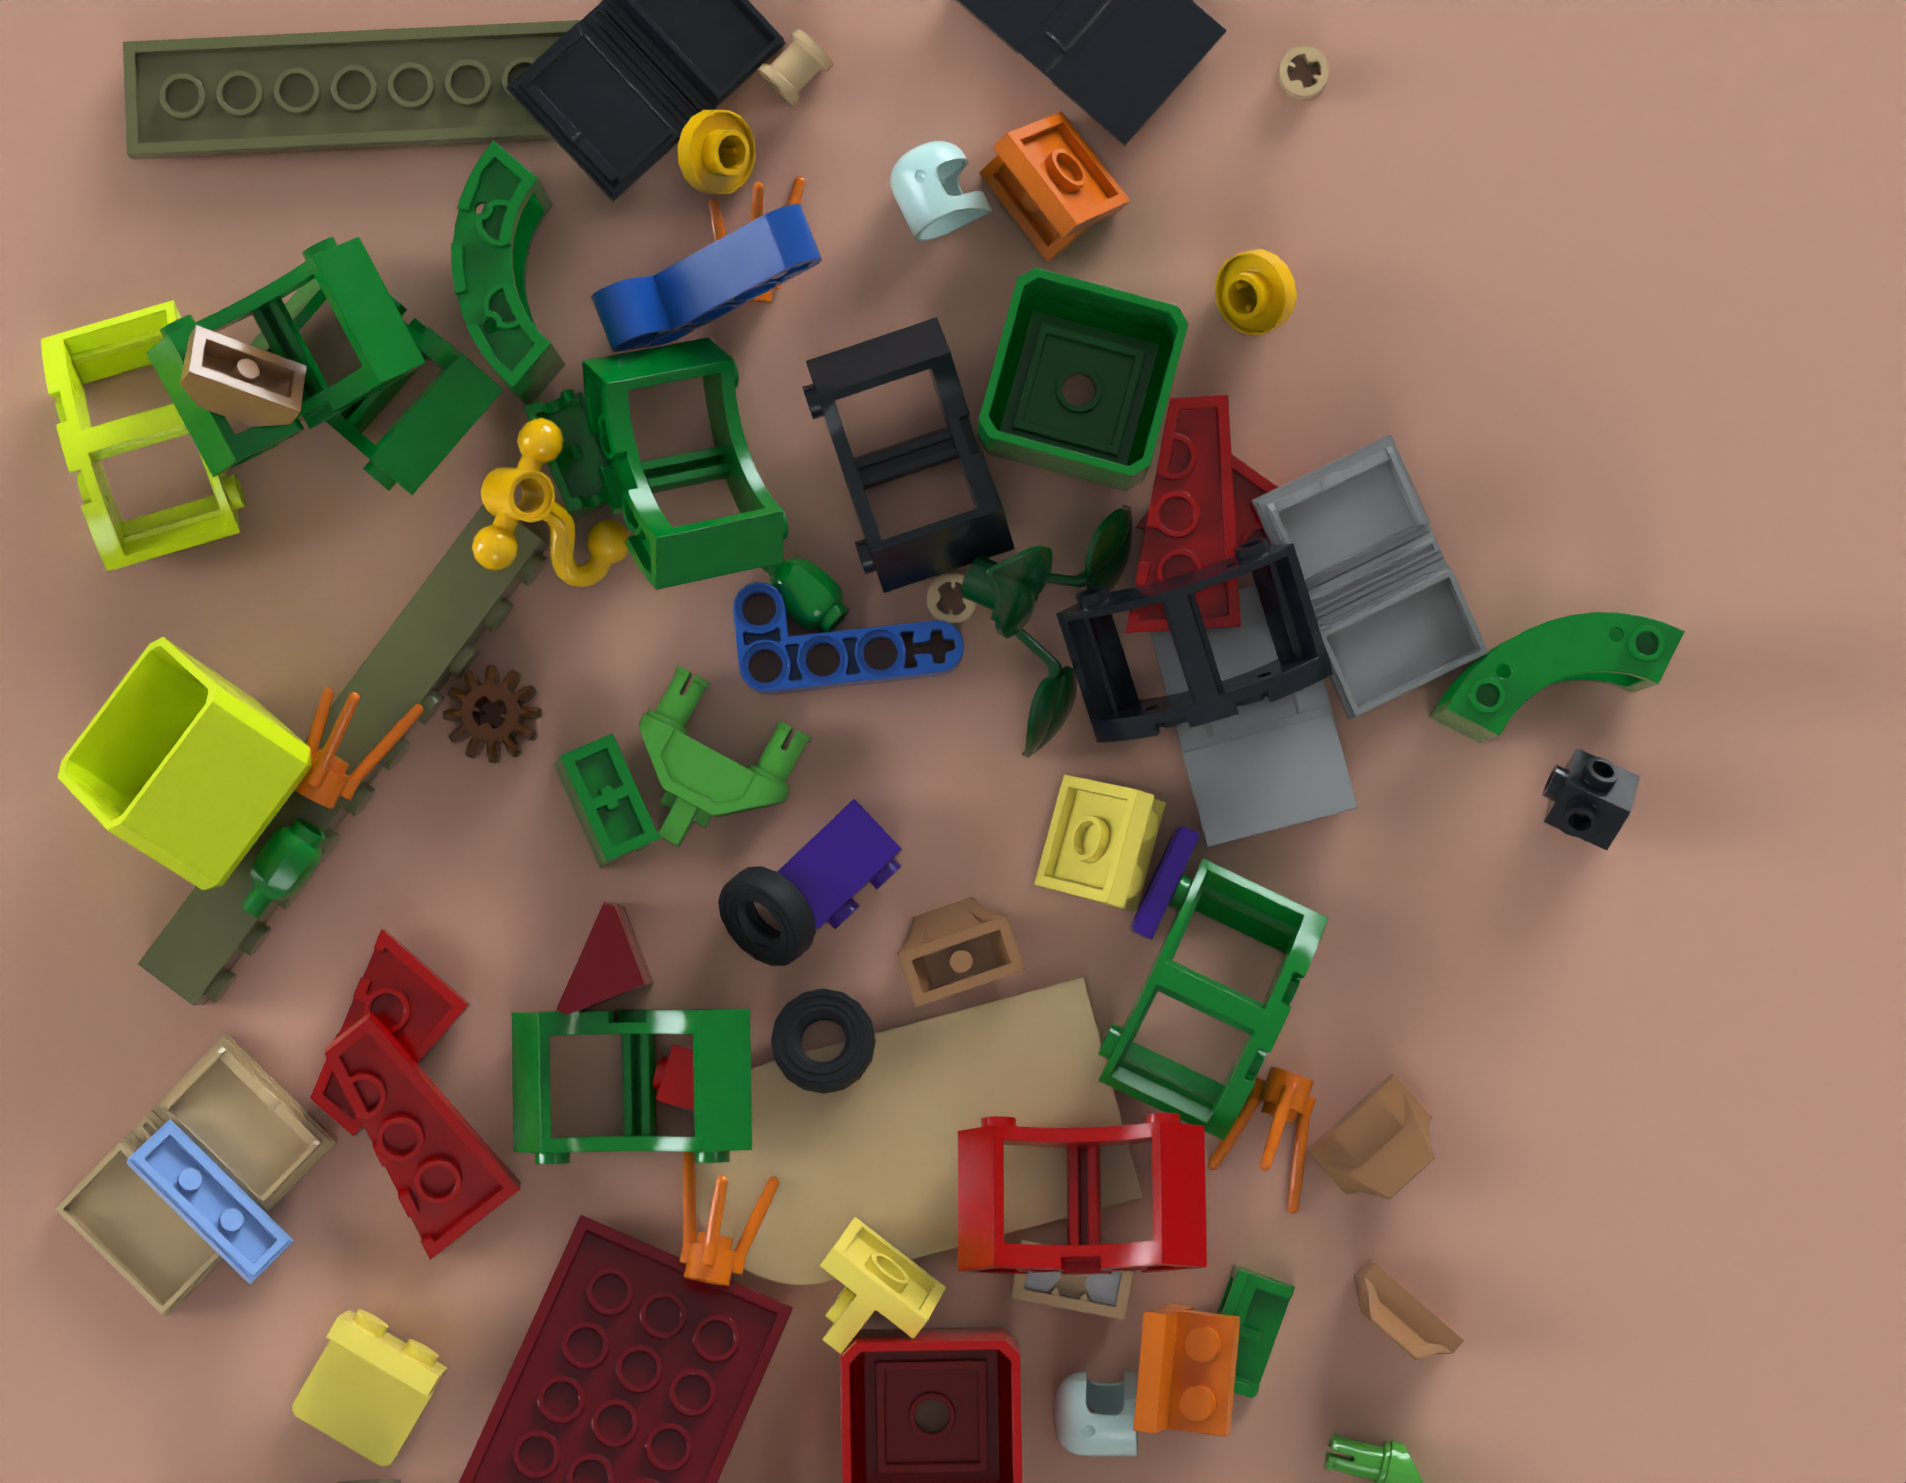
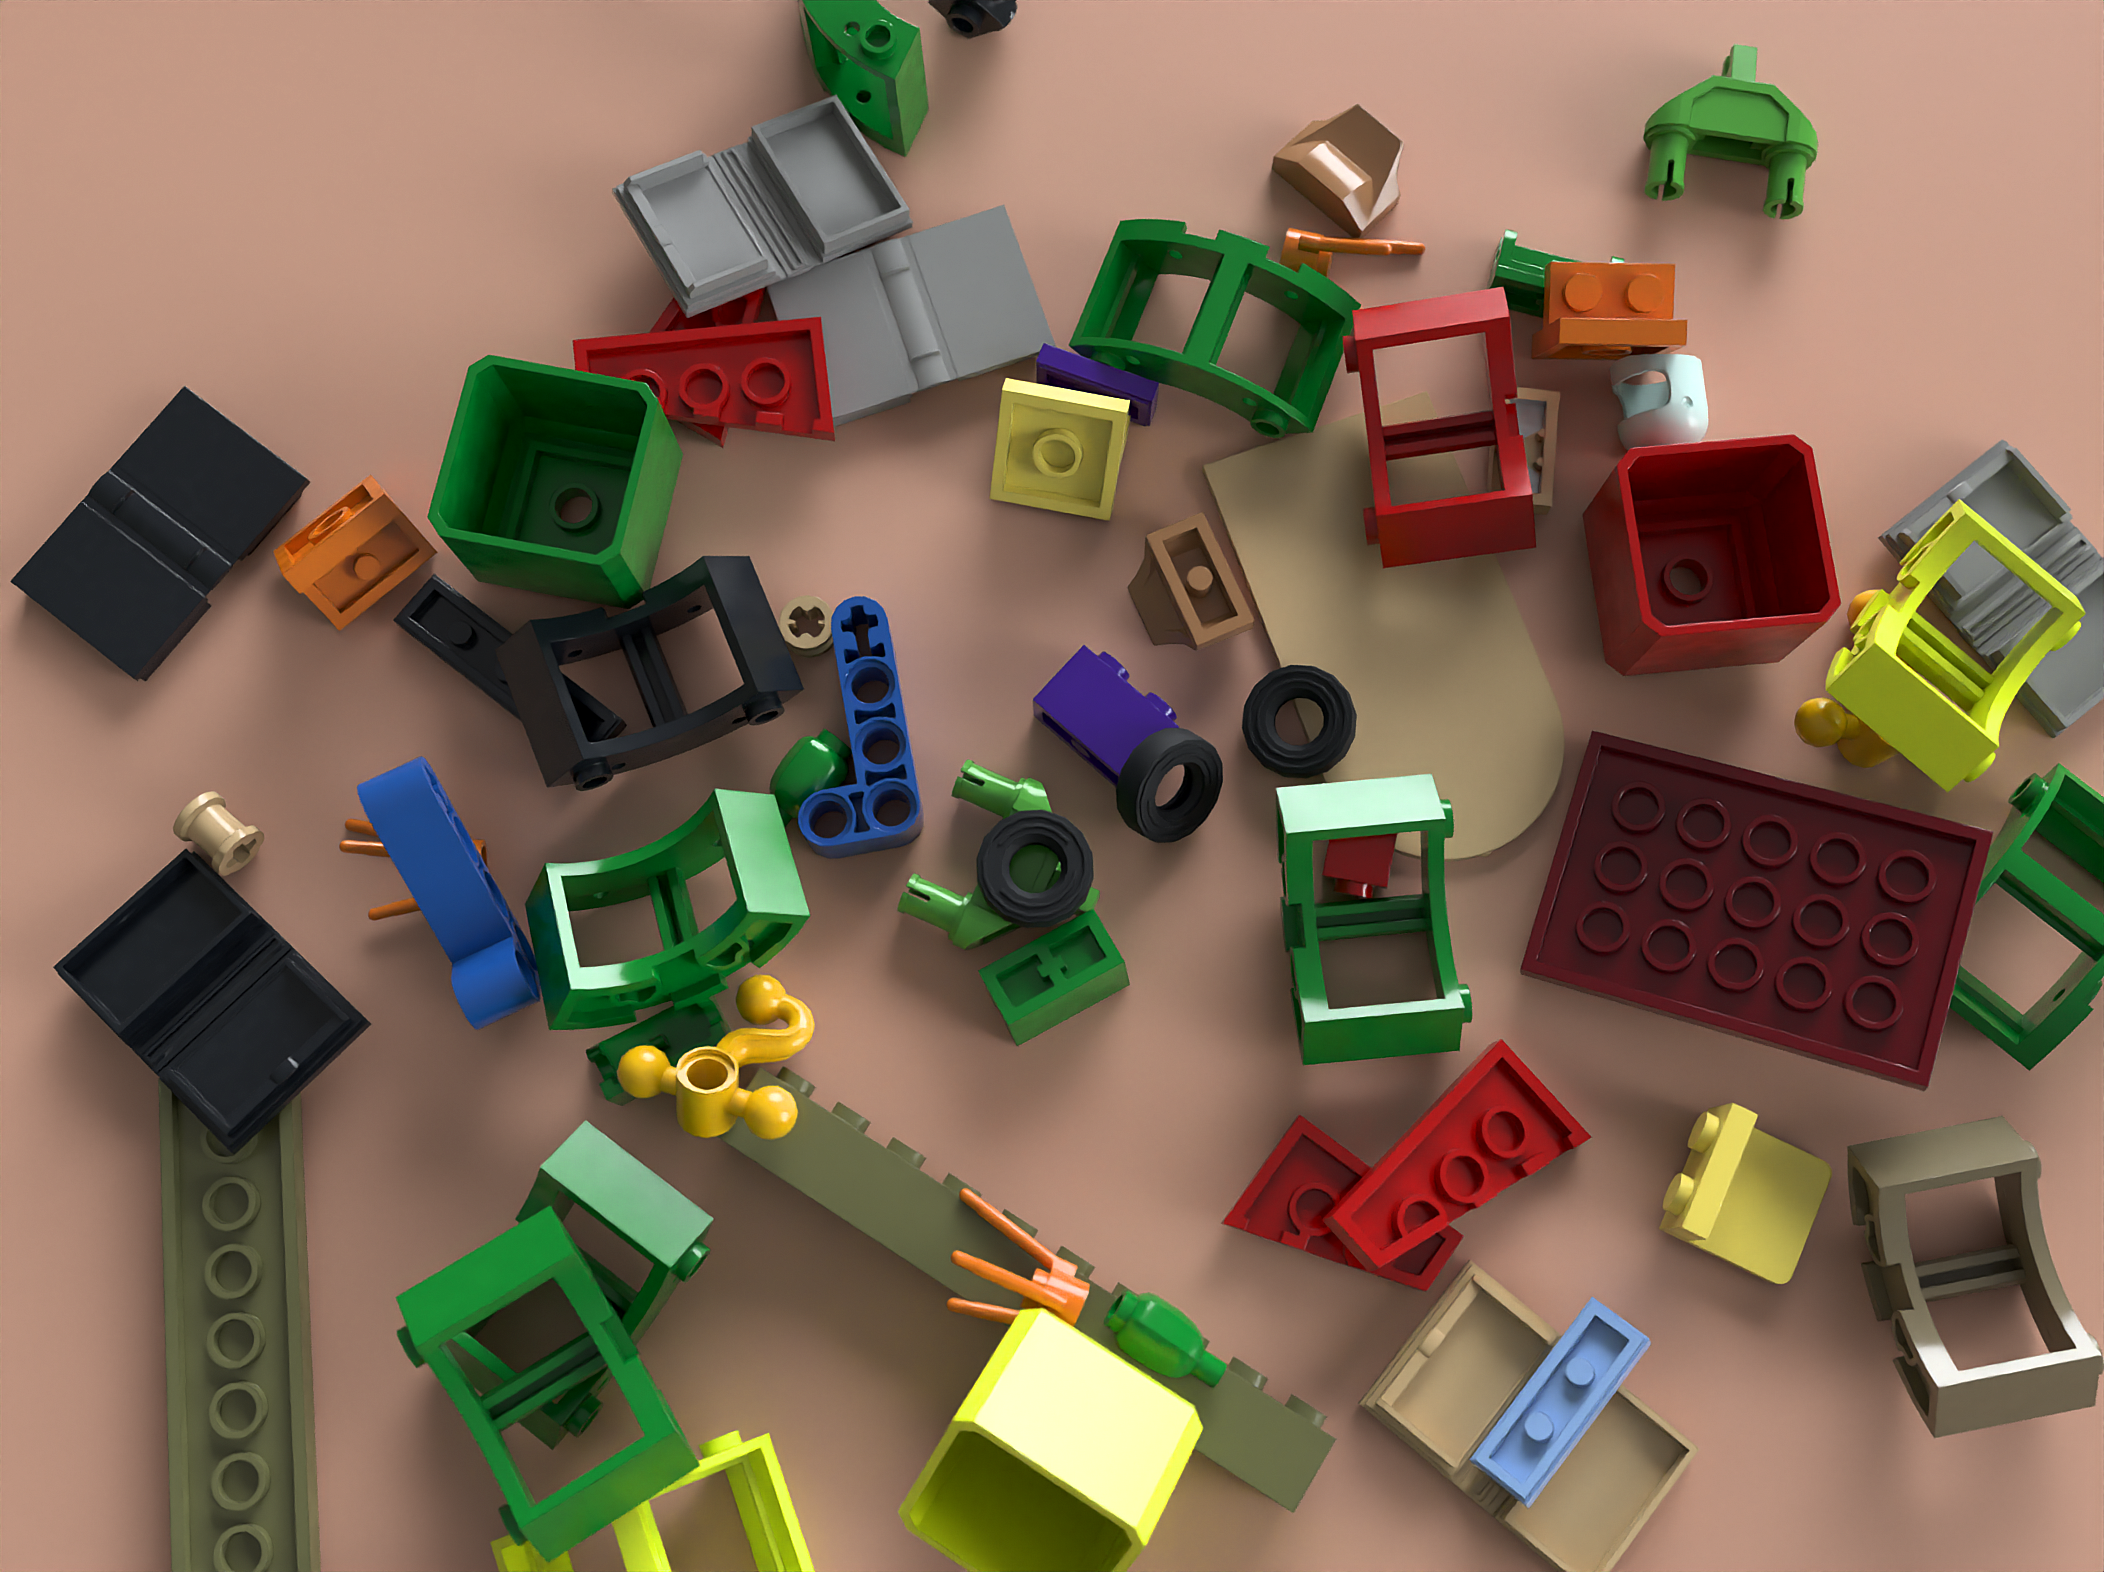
camera: 90 degrees left, 10 degrees down
(241, 380) = (575, 1431): medium nougat slope -> none
(491, 267) = (454, 1146): green window -> none
(499, 695) = (987, 1116): reddish brown gear -> none
(608, 963) = (1243, 953): dark red slope -> none
(699, 753) = (1042, 829): none -> black tyre
(712, 1257) = (1550, 813): orange plant -> none
(716, 151) = (312, 910): yellow plate -> none
(878, 1280) = (1566, 633): light yellow bracket -> none
(930, 193) = (361, 676): light aqua helmet -> none
(956, 299) = (467, 643): none -> black tile
(1011, 593) = (792, 554): dark green plant -> none
(1103, 668) = (818, 265): black window -> none
(1255, 292) = (462, 330): yellow plate -> none
(1311, 57) = (217, 310): tan bush -> none
(1402, 1315) = (1515, 131): medium nougat slope -> none

